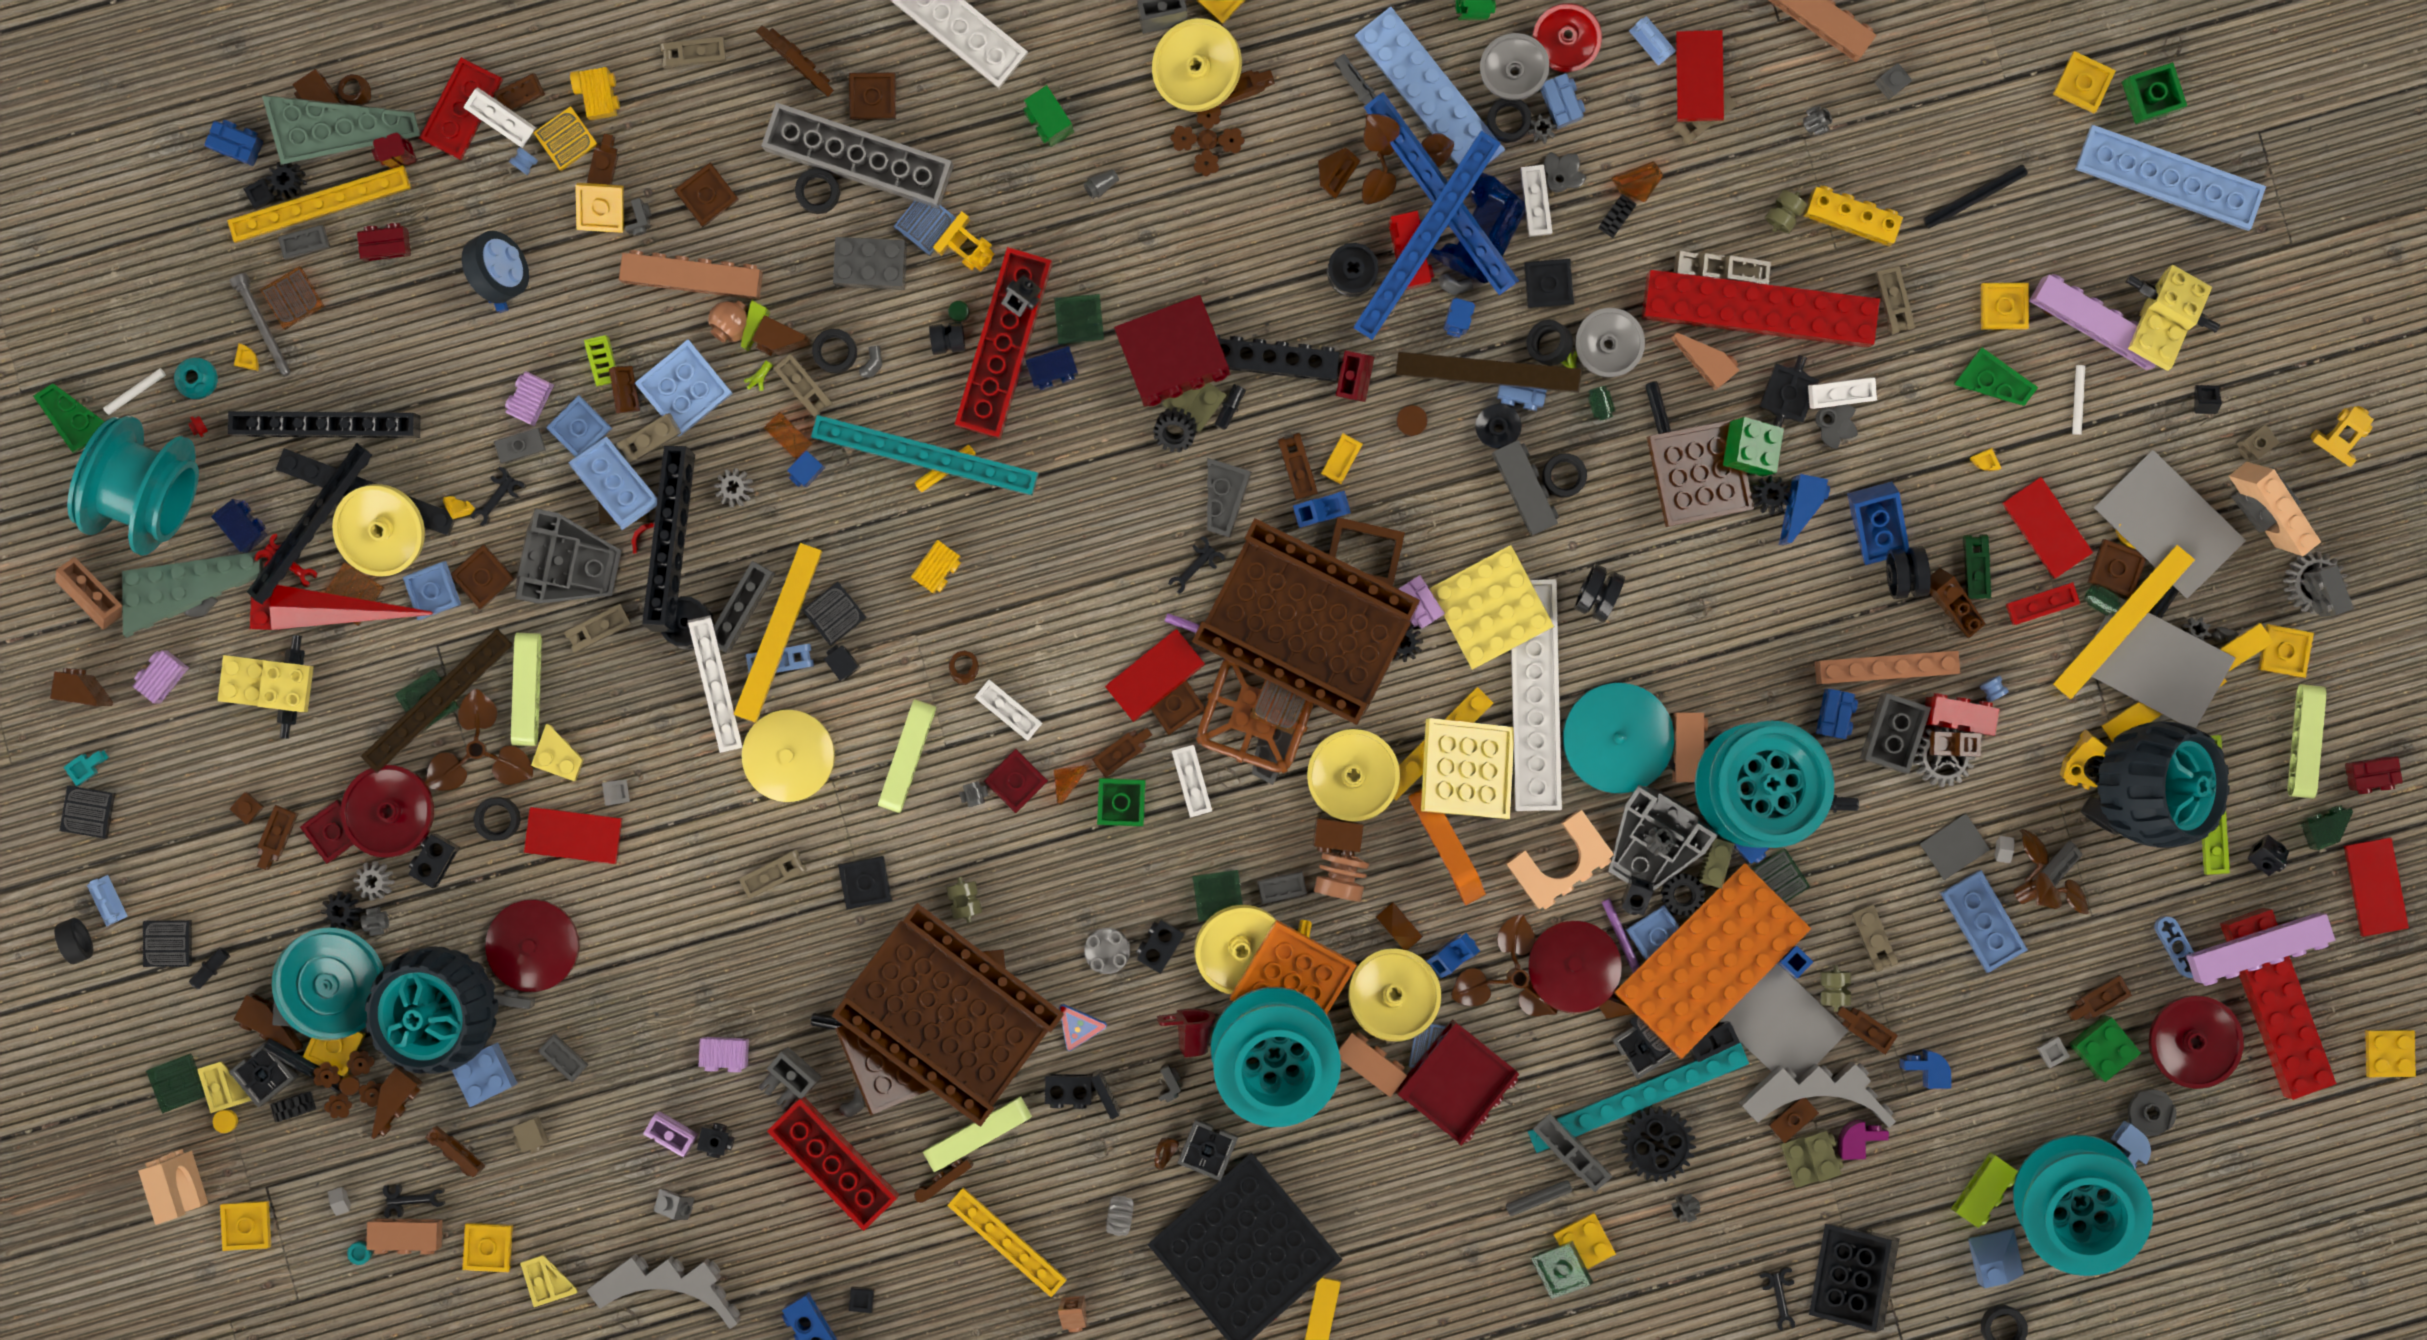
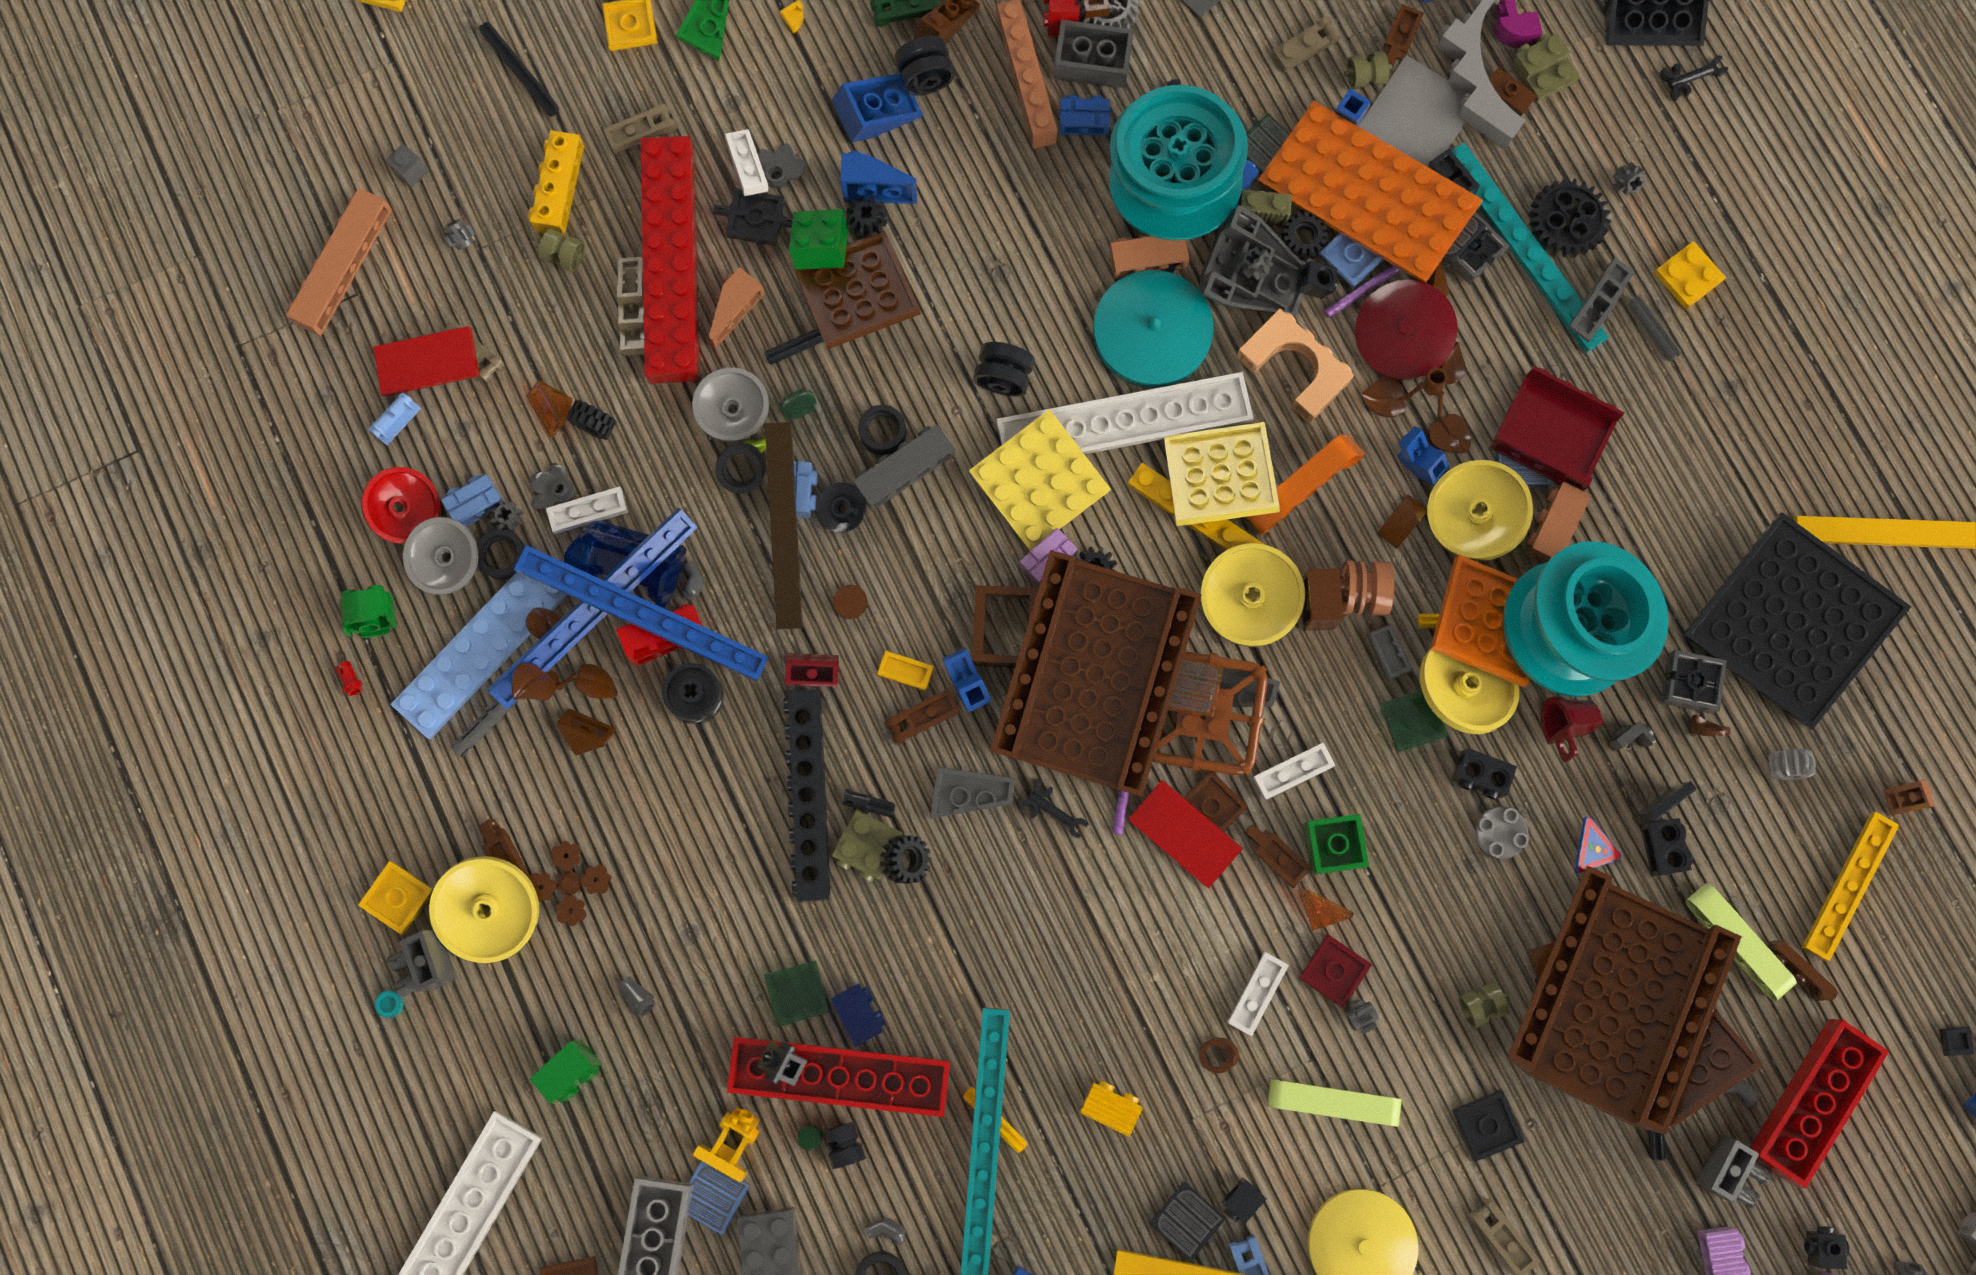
camera: 100 degrees left, 10 degrees down
(1172, 351) = (816, 878): dark red panel -> none
(1458, 317) = (728, 567): blue brick -> none
(1548, 283) = (676, 481): black plate -> none
(1561, 1270) = (1726, 289): clear green plate -> none

